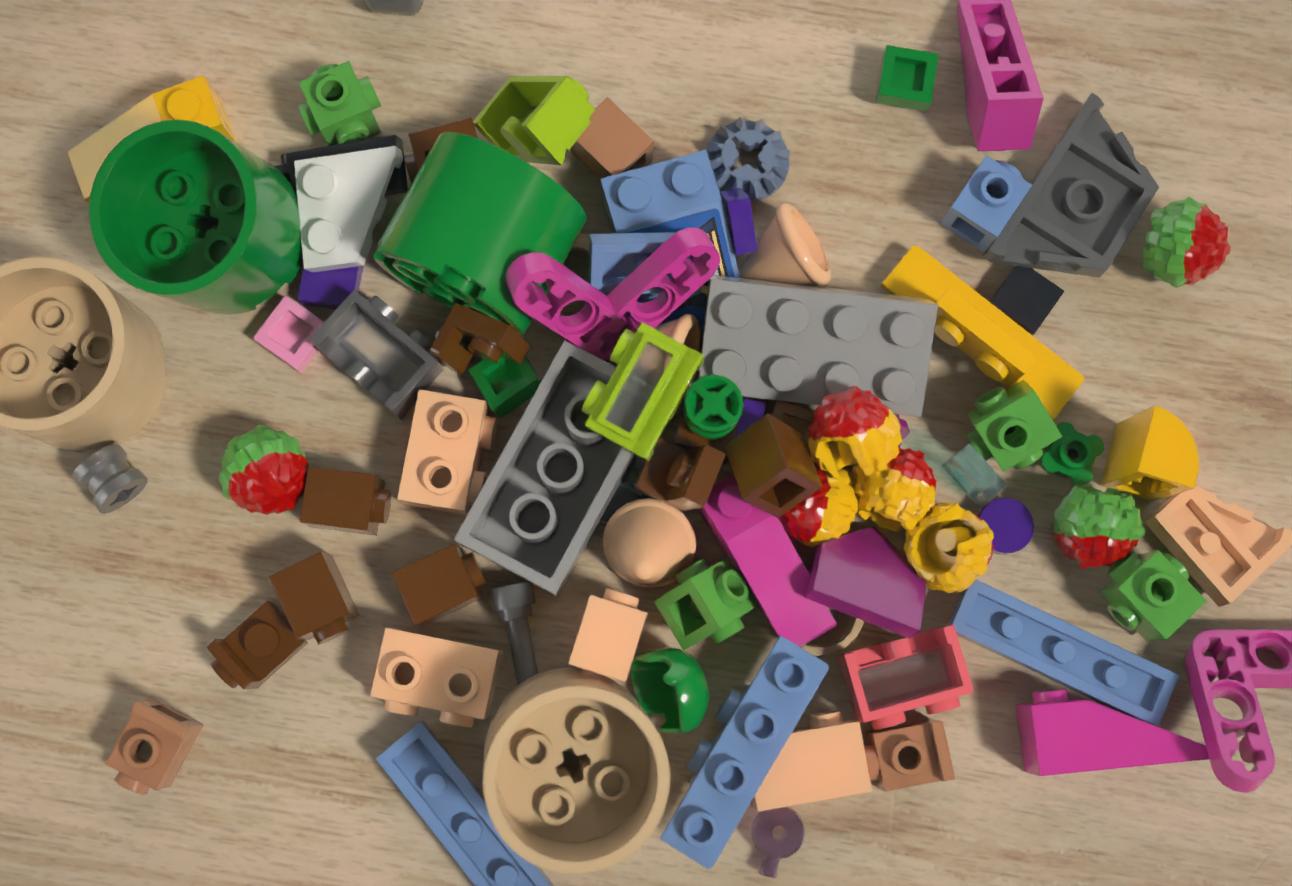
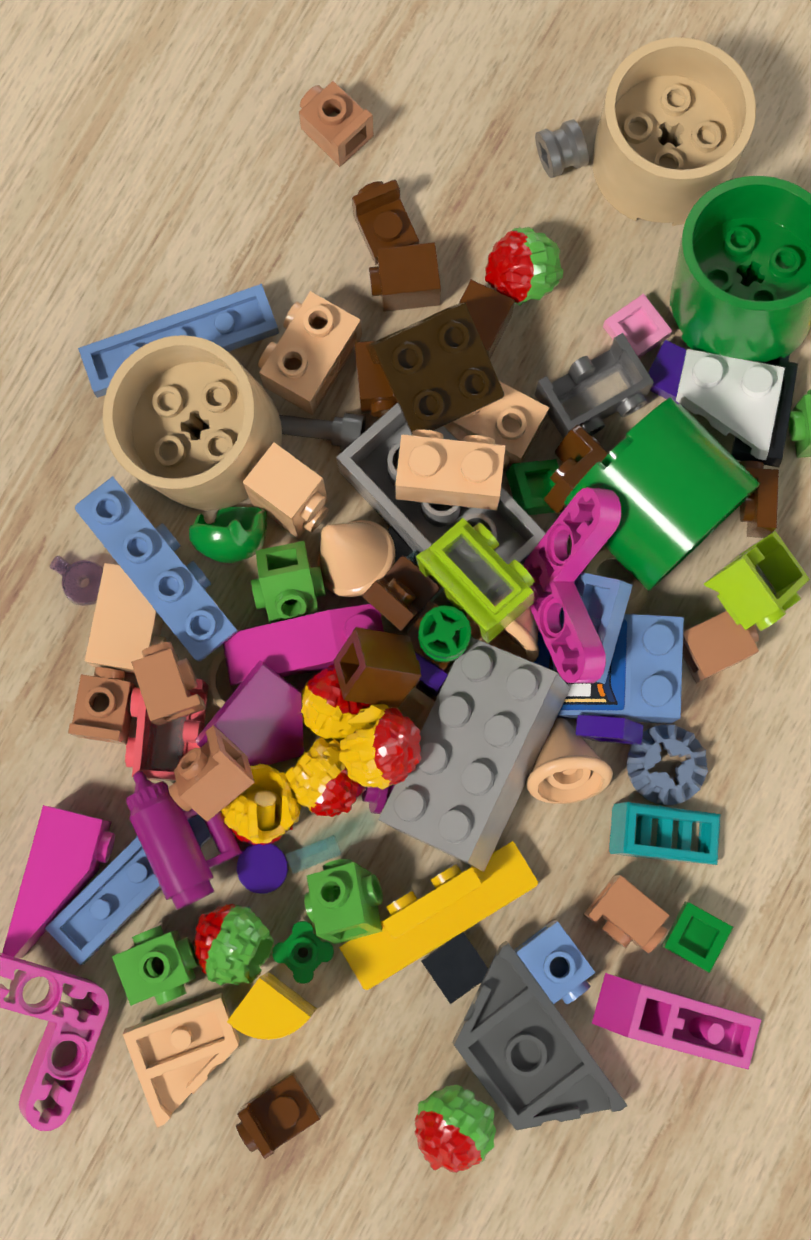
camera: 115 degrees right, 0 degrees up
(418, 519) = (437, 369): none -> dark brown bracket
(536, 459) = (450, 470): none -> light nougat brick
(825, 173) = (624, 825): none -> teal slope
(871, 686) = (166, 684): none -> nougat brick
(912, 149) = (628, 915): none -> nougat brick
(949, 601) = (211, 776): none -> nougat brick
(1027, 621) = (172, 844): none -> magenta piece
(1238, 424) = (276, 1116): none -> reddish brown bracket

